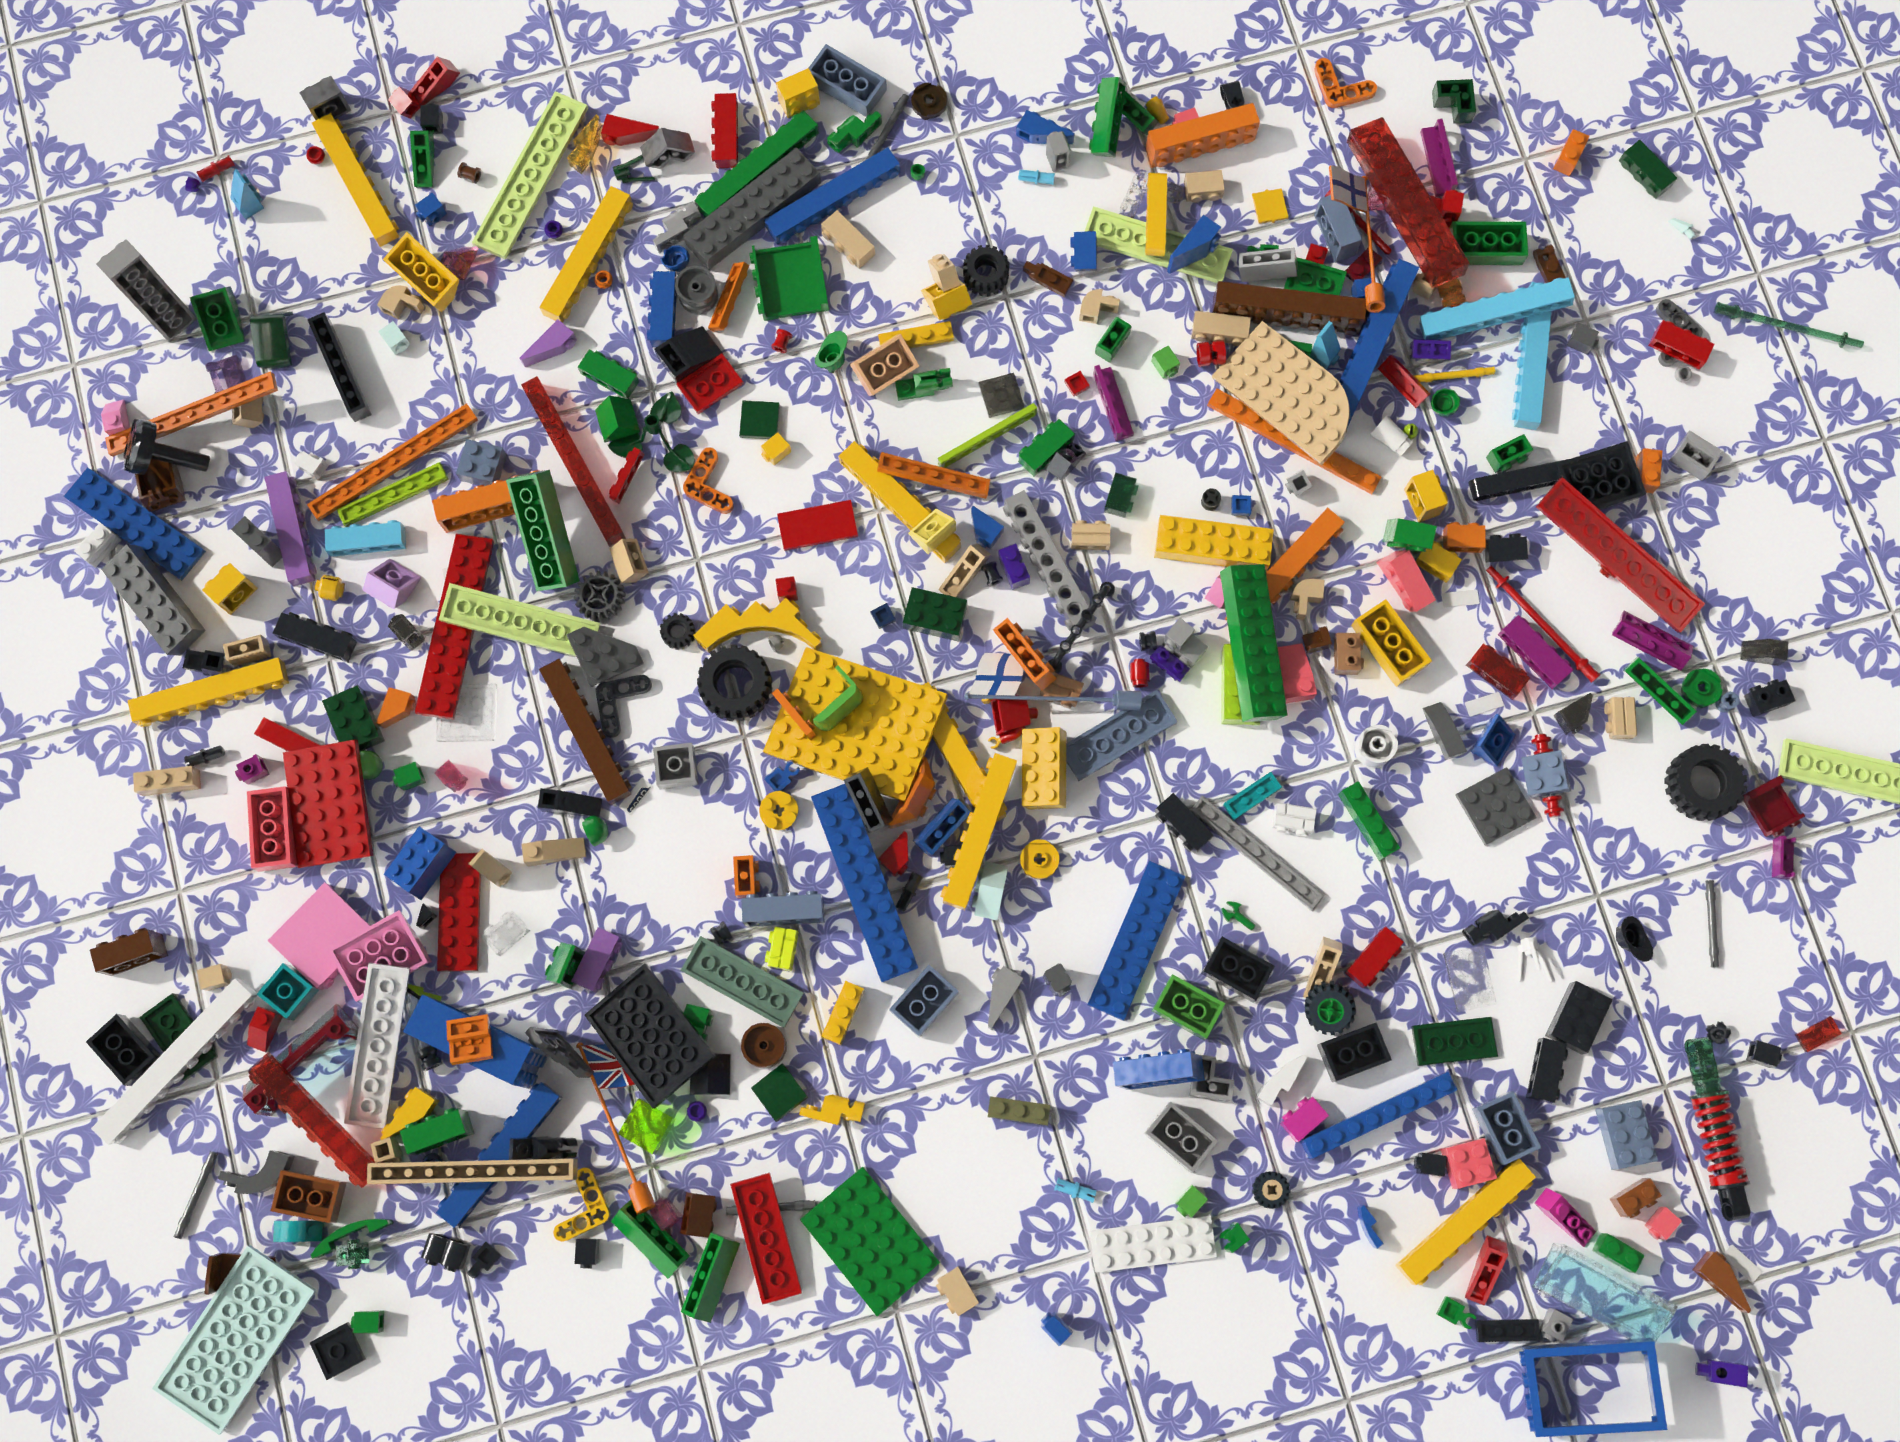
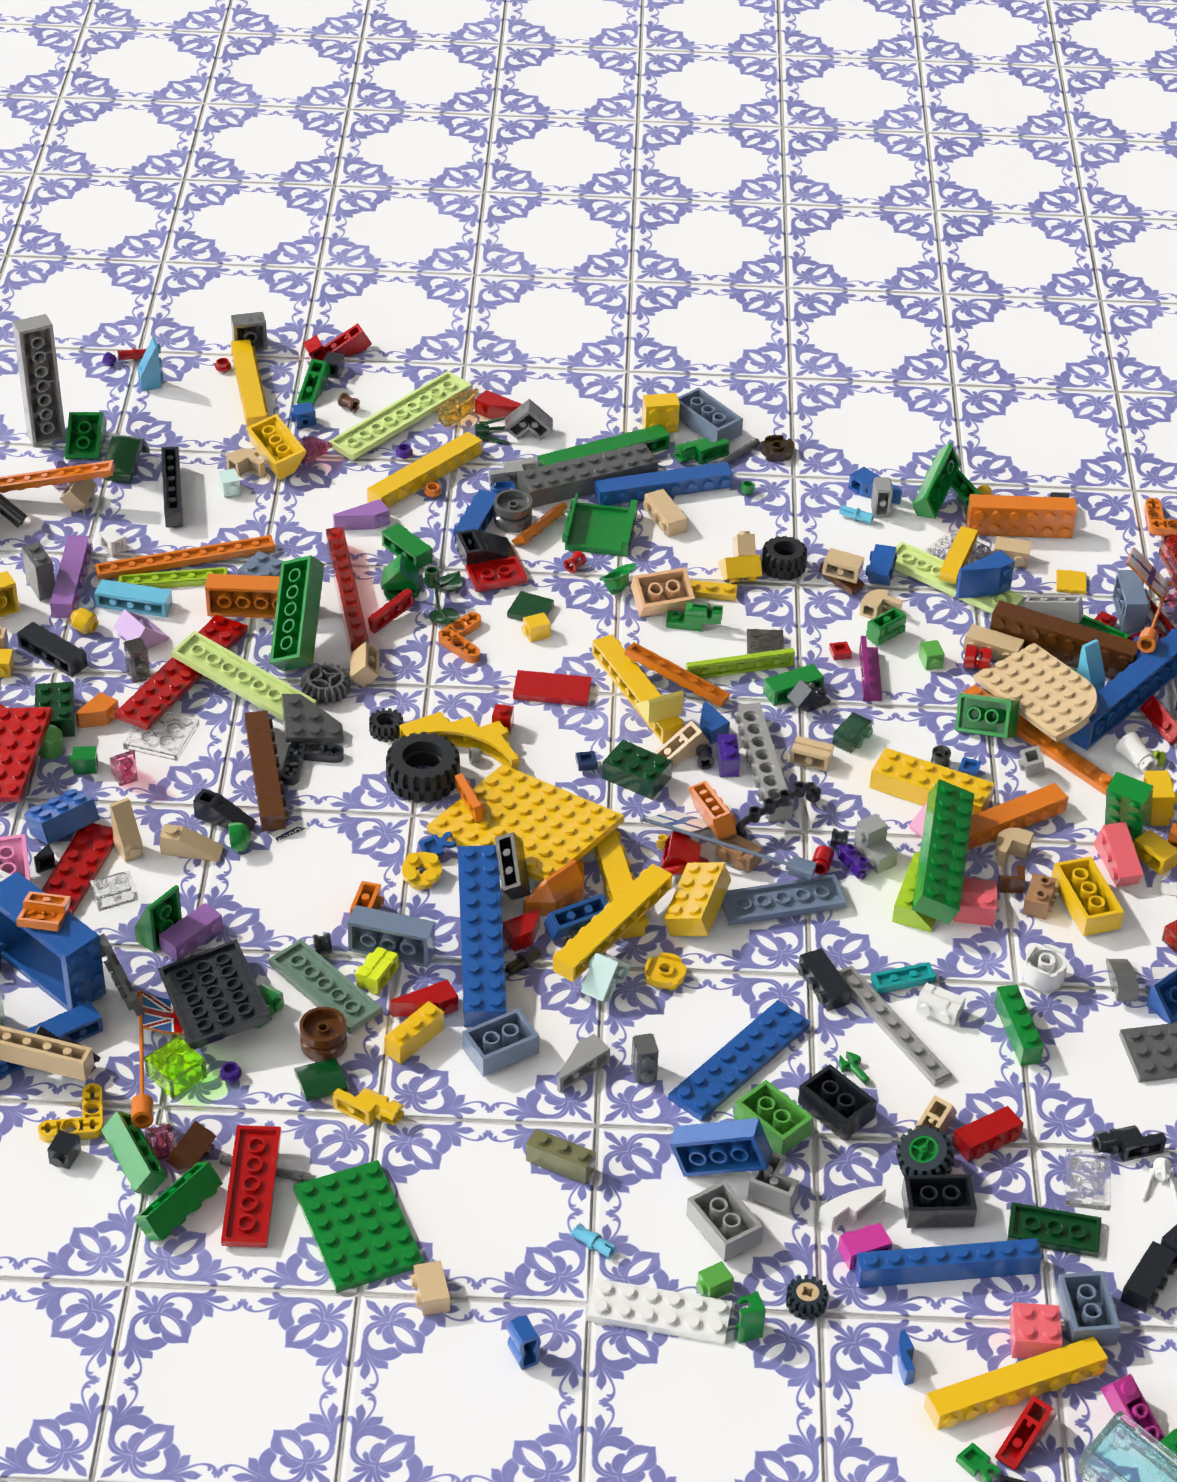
camera: 15 degrees right, 35 degrees down
(675, 766) = (337, 811): light grey brick -> none
(713, 1078) = (259, 1048): black slope -> none
(726, 130) = (586, 423): red brick -> none
(841, 706) = (514, 795): bright green piece -> none
(844, 969) = (439, 994): none -> red slope
(1050, 270) = (843, 565): none -> tan brick
(1243, 437) = (987, 715): none -> green slope
(1430, 1164) = (992, 1322): black brick -> none

